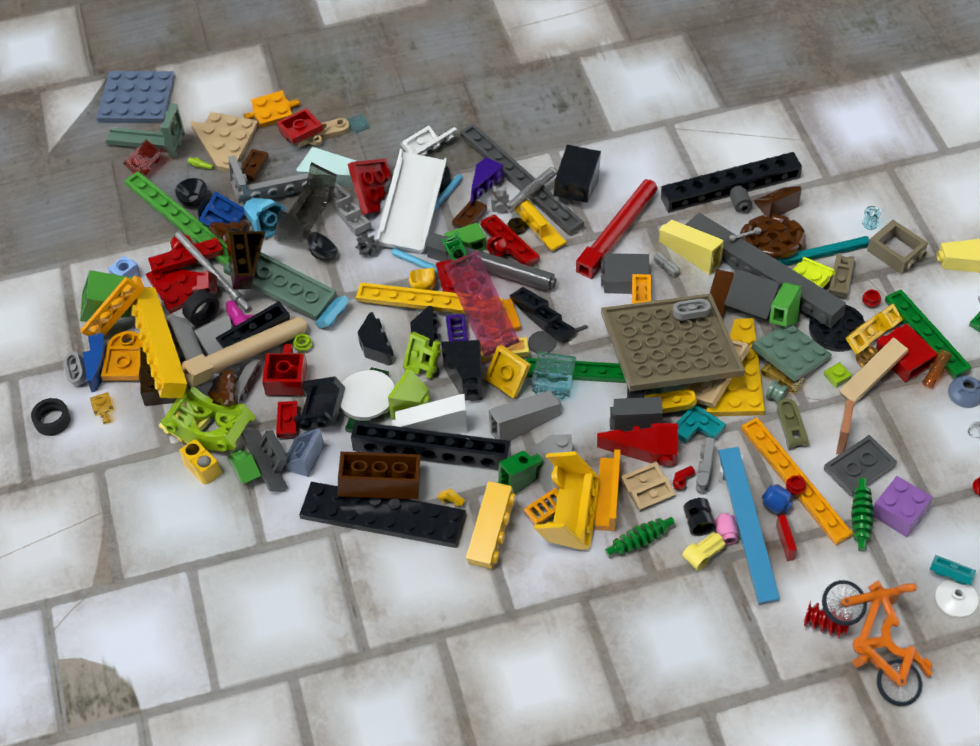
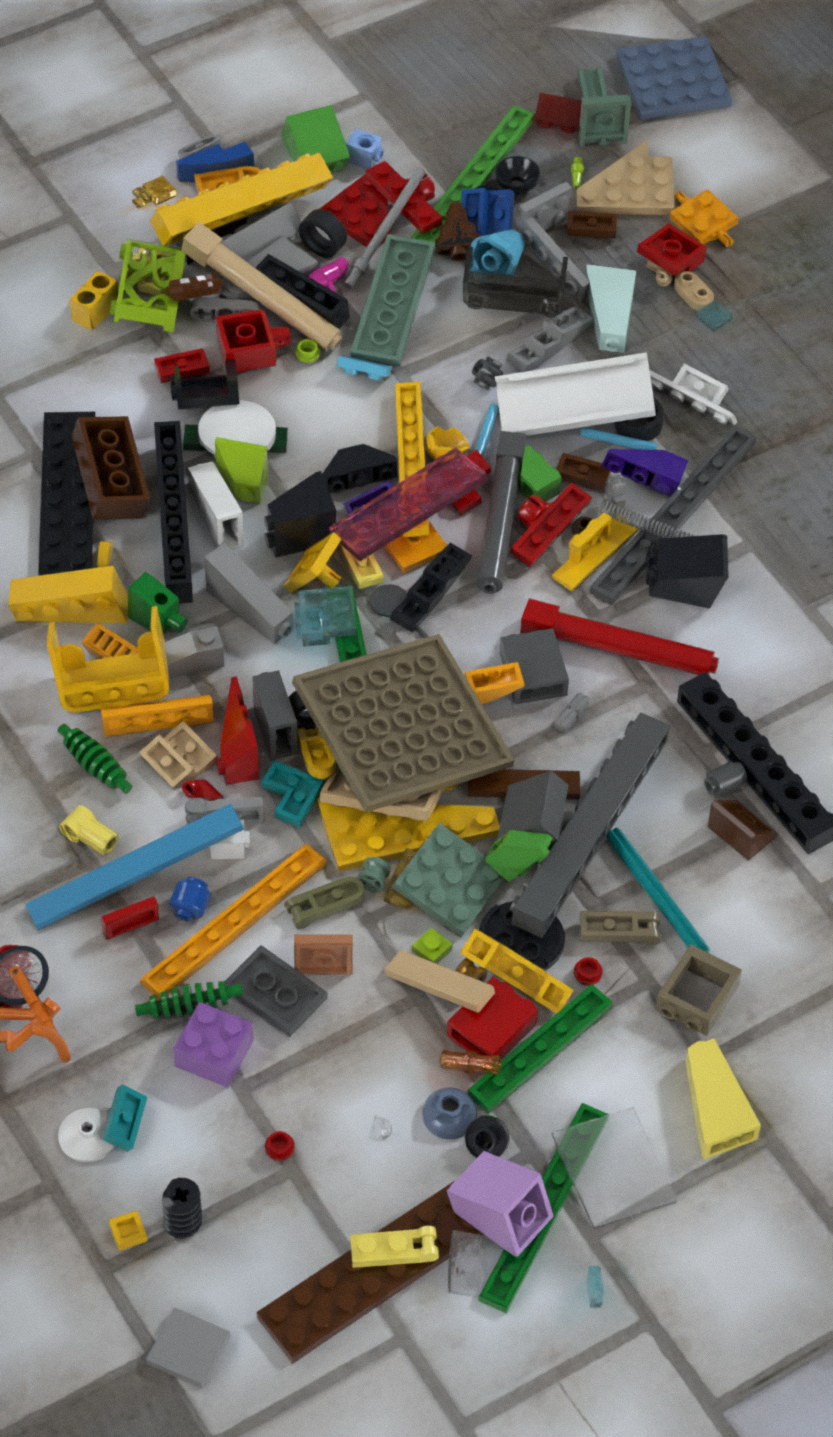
camera: 70 degrees right, 0 degrees up
(48, 405) = (124, 136): black tyre -> none
(114, 306) = (279, 149): light orange fence -> none
(206, 282) = (358, 226): red panel -> none
(243, 255) = (398, 243): dark brown wedge -> none
(243, 465) = (98, 341): bright green slope -> none
(267, 456) = (114, 359): dark grey bracket -> none
(304, 452) = (133, 397): sand blue slope -> none
(321, 246) = (477, 326): black piece -> none
(369, 182) = (590, 338): red plate -> none
(374, 341) = (332, 417): black slope -> none
(416, 354) = (314, 461): lime plate -> none
(454, 246) = (493, 457): green piece -> none
(691, 309) = (464, 733): light grey plate -> none
(693, 245) = (605, 728): light yellow slope -> none
(699, 516) = (137, 814): black wheel -> none
(727, 528) = (126, 845): bright pink brick -> none
(732, 238) = (658, 800): light grey hinge -> none
(786, 240) = (665, 813): reddish brown plate -> none
(796, 485) = (215, 914): red plate -> none
(814, 271) = (605, 886): neon yellow plate -> none
(868, 216) = (746, 950): clear light blue bush -> none

